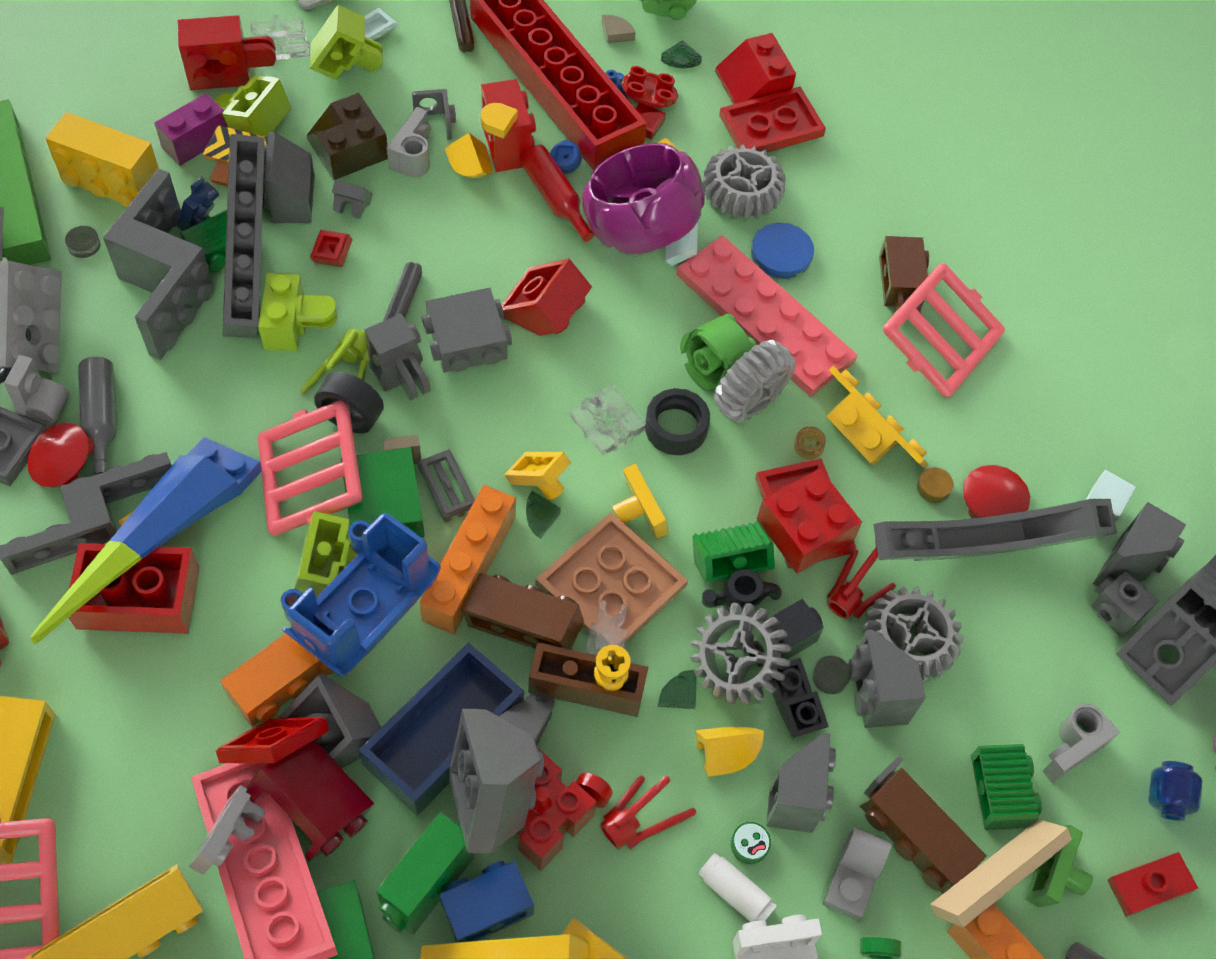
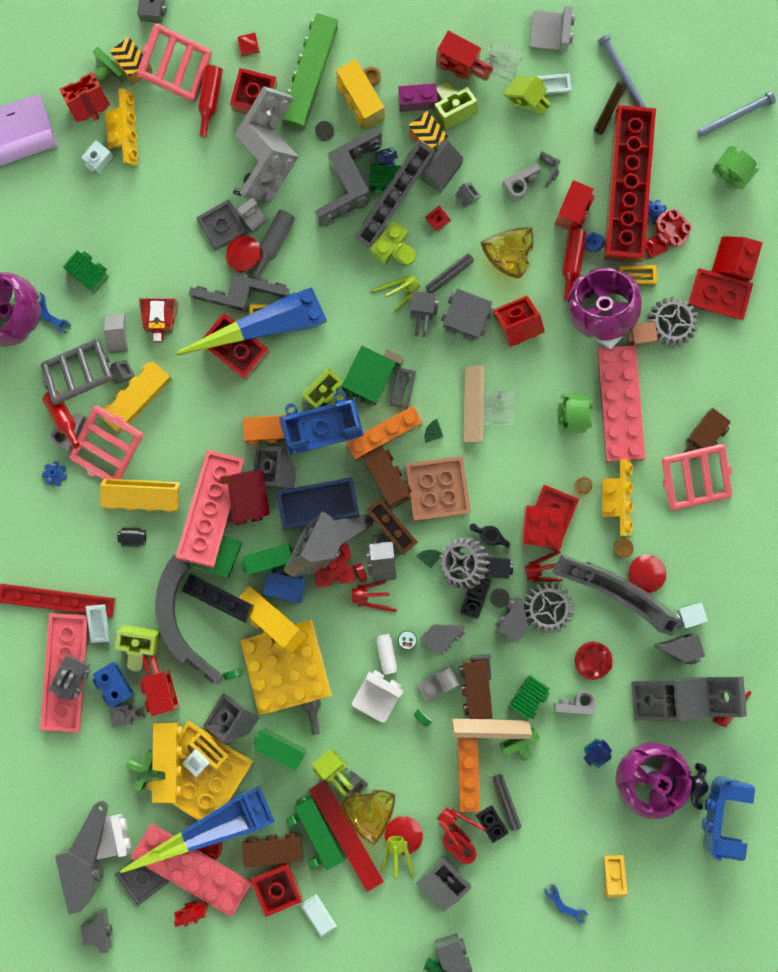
camera: 45 degrees right, 25 degrees up
(230, 821) = (206, 485): light grey plate -> none
(271, 465) = (359, 354): coral bar -> none
(272, 740) = (246, 461): red tile -> none
(348, 137) = (491, 155): dark brown slope -> none
(362, 398) = (384, 318): black tyre -> none
(462, 226) = (509, 250): none -> clear yellow brick
(469, 157) = (544, 210): yellow brick -> none
(498, 118) = (563, 210): yellow tile -> none
(539, 470) = (444, 413): yellow tile -> none
(570, 436) = (474, 404): none -> tan tile
(608, 632) = (412, 516): clear plate -> none
(614, 738) = (381, 560): none -> dark grey brick
(617, 29) = (688, 173): dark tan tile -> none
(620, 661) = (398, 527): yellow bush -> none
(640, 503) = (479, 461): yellow tile -> none
(681, 56) = (709, 216): clear green tile -> none
(683, 400) = (529, 417): black tyre -> none
(721, 215) = (642, 334): none -> nougat brick
(728, 748) = (429, 596): yellow brick -> none
(732, 549) = (500, 514): green brick -> none
(755, 380) = (578, 440): light grey gear -> none
(782, 250) = (660, 374): blue tile -> none
(1040, 662) = (593, 660): none -> red dish
(1123, 602) = (659, 667): dark grey brick -> none
(1152, 884) = (555, 778): red plate -> none

